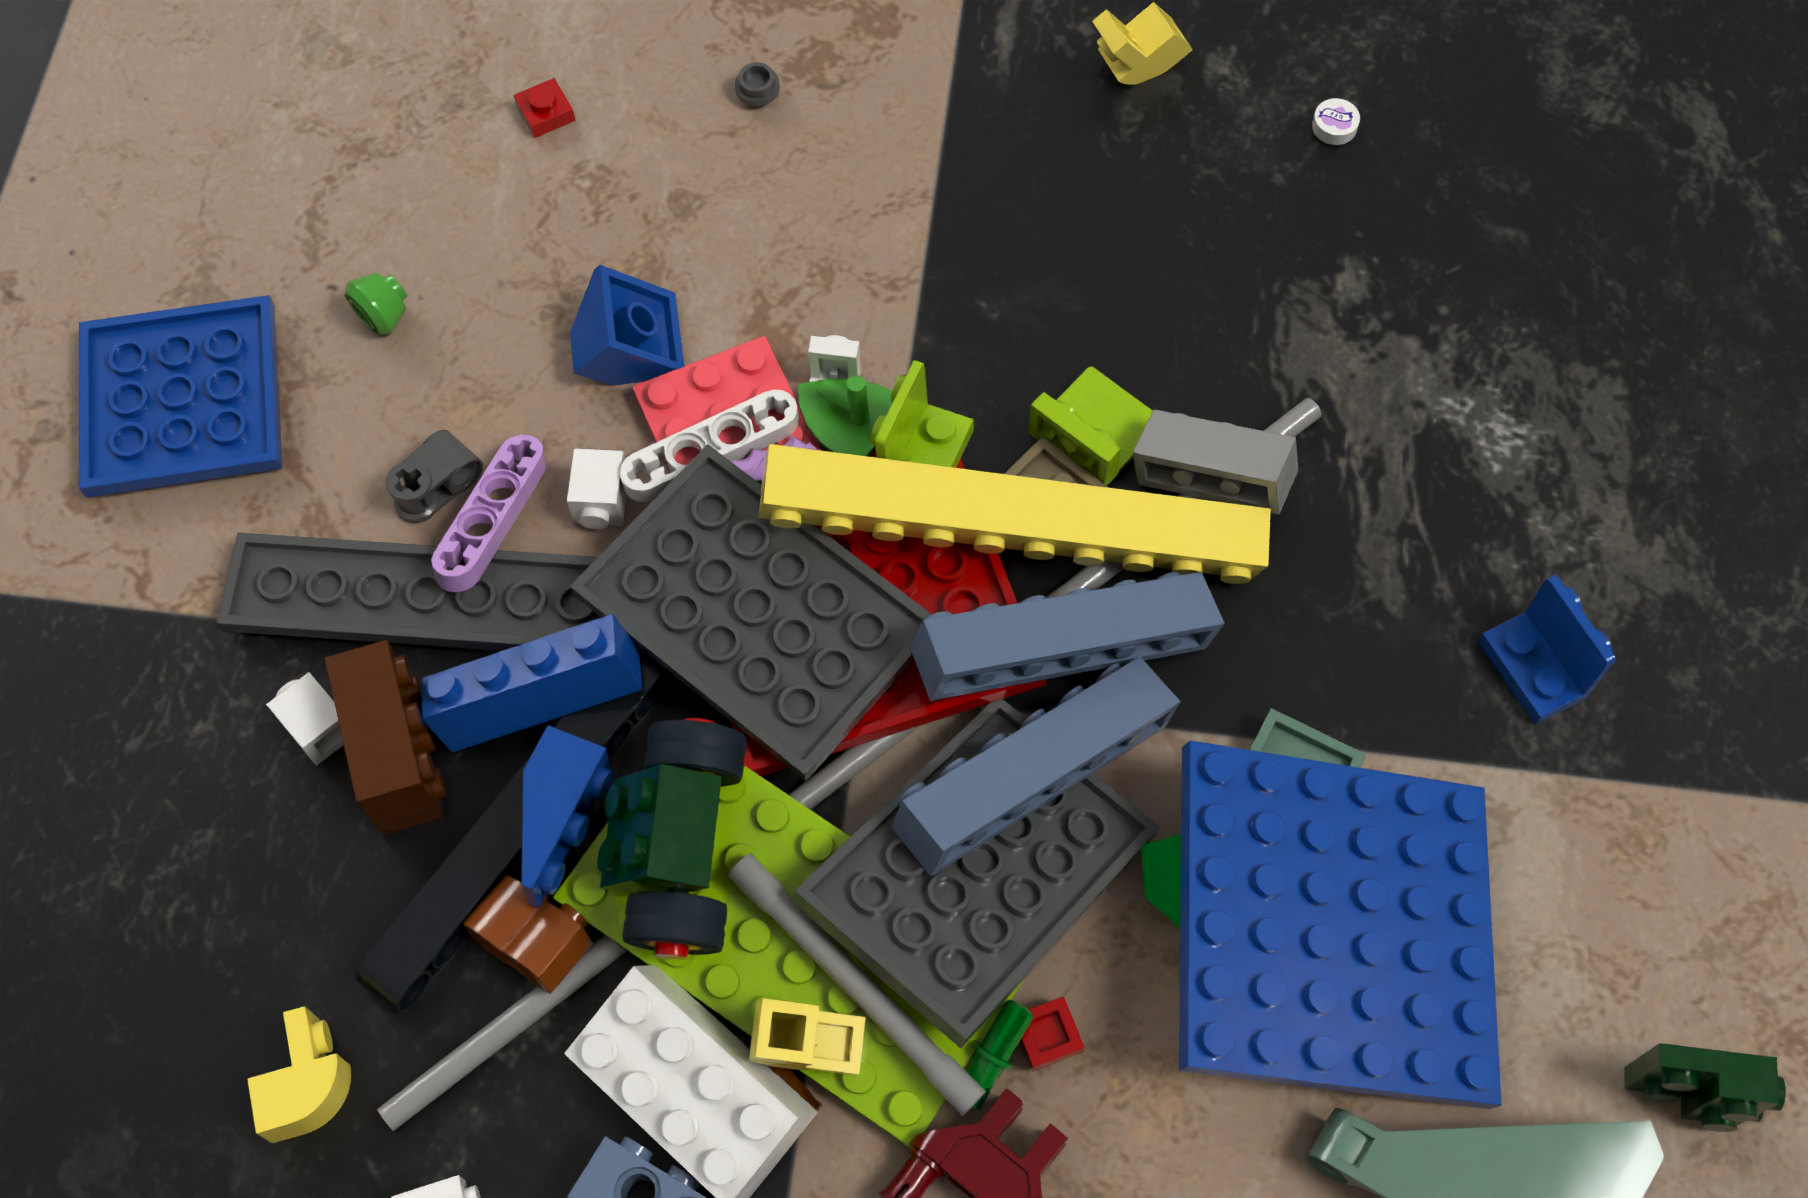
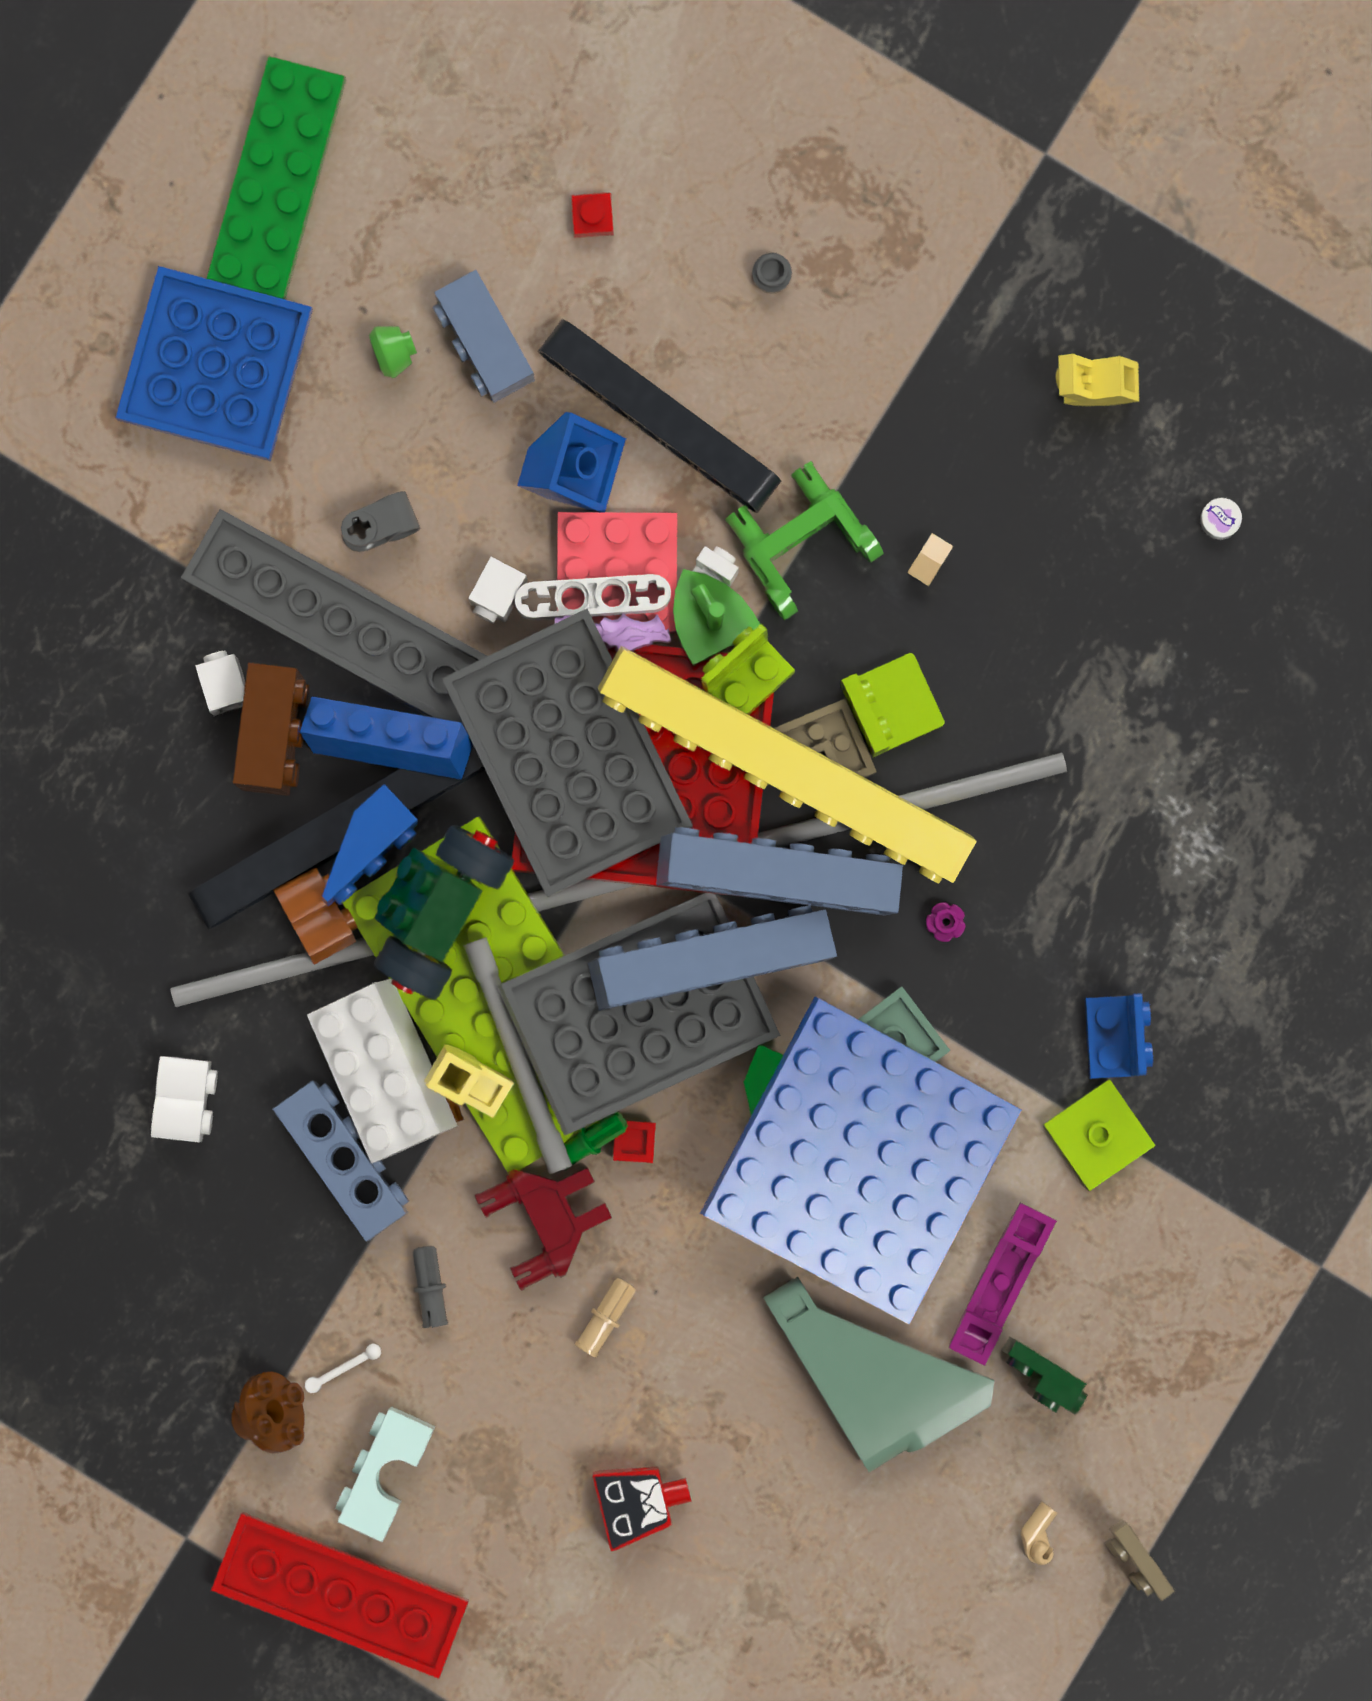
camera: 20 degrees right, 20 degrees up
(186, 198) = (276, 177): none -> green plate
(306, 1093) = (130, 957): light yellow brick -> none
(475, 252) = (482, 337): none -> sand blue brick
(482, 509) = (413, 579): lavender beam -> none
(702, 252) = (659, 416): none -> black beam
(922, 269) = (765, 548): none -> bright green connector
(1060, 271) = (930, 559): none -> tan piece
(1216, 460) = (960, 781): light grey brick -> none
(1277, 634) = (940, 931): none -> magenta plate
(1579, 1000) = (1001, 1283): none -> magenta slope
(1586, 779) = (1099, 1135): none -> lime plate

